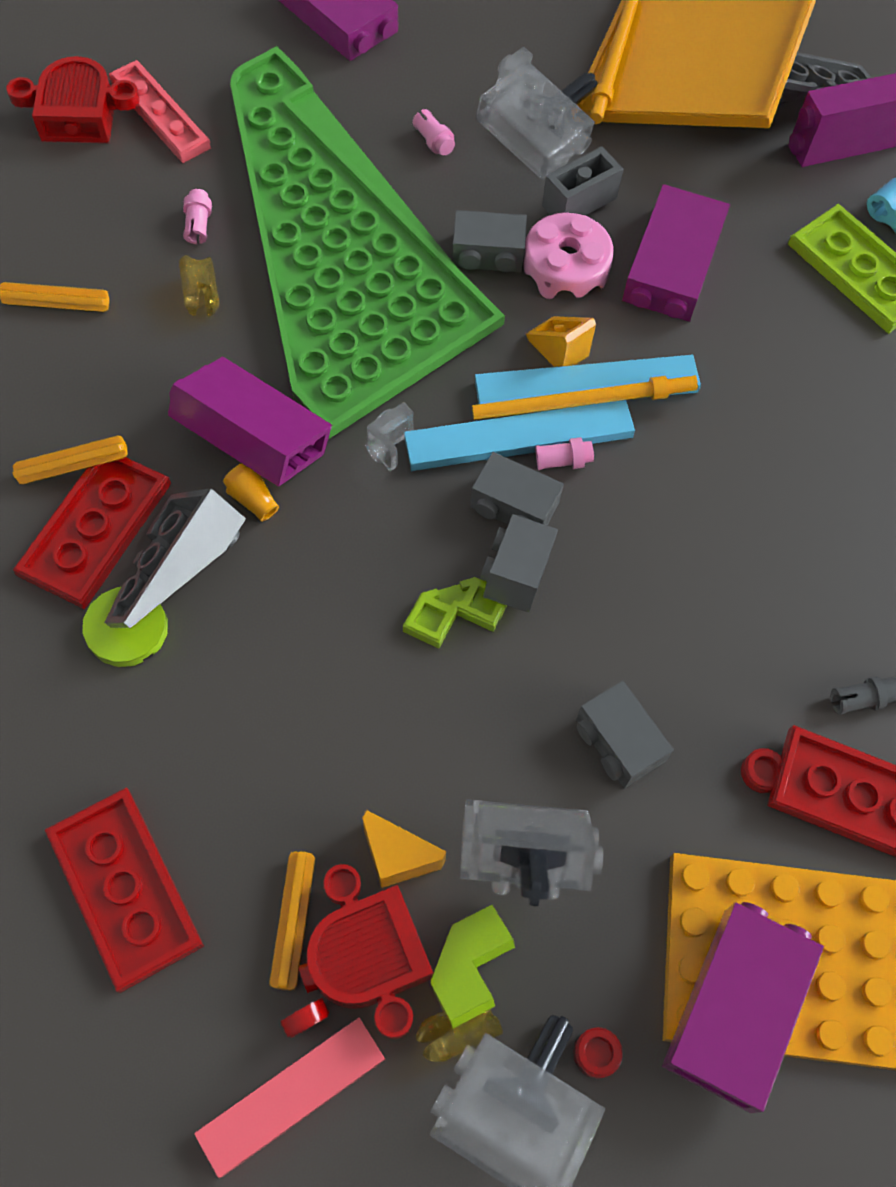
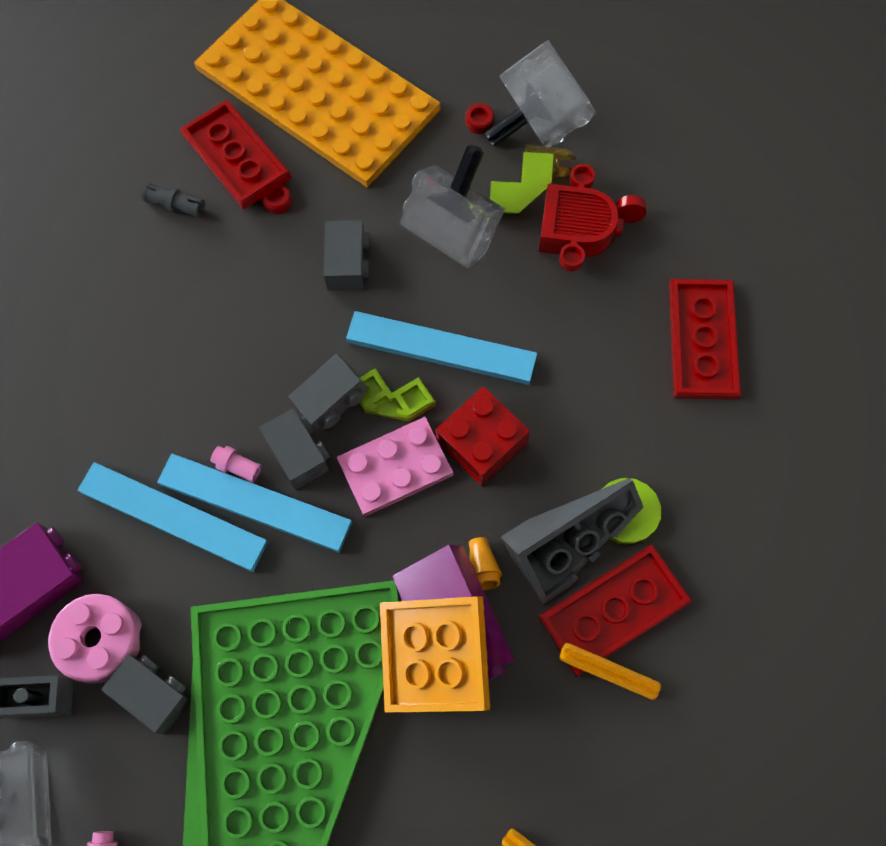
camera: 140 degrees left, 5 degrees up
(199, 285) = (417, 800): clear yellow piece -> none
(244, 369) = (434, 655): none -> light orange plate
(289, 1097) = (659, 181): coral tile -> none
(292, 921) = (609, 265): light orange axle -> none
(324, 609) = (482, 436): none -> red piece
(387, 432) = (348, 557): clear bracket -> none
(399, 853) = (526, 261): light orange slope -> none
(403, 542) = (394, 466): none -> bright pink plate
(435, 694) = (441, 347): none -> medium azure tile
(563, 339) = (162, 561): light orange slope -> none
(656, 388) = (130, 472): light orange bar -> none
(744, 1007) = (391, 83): magenta brick -> none

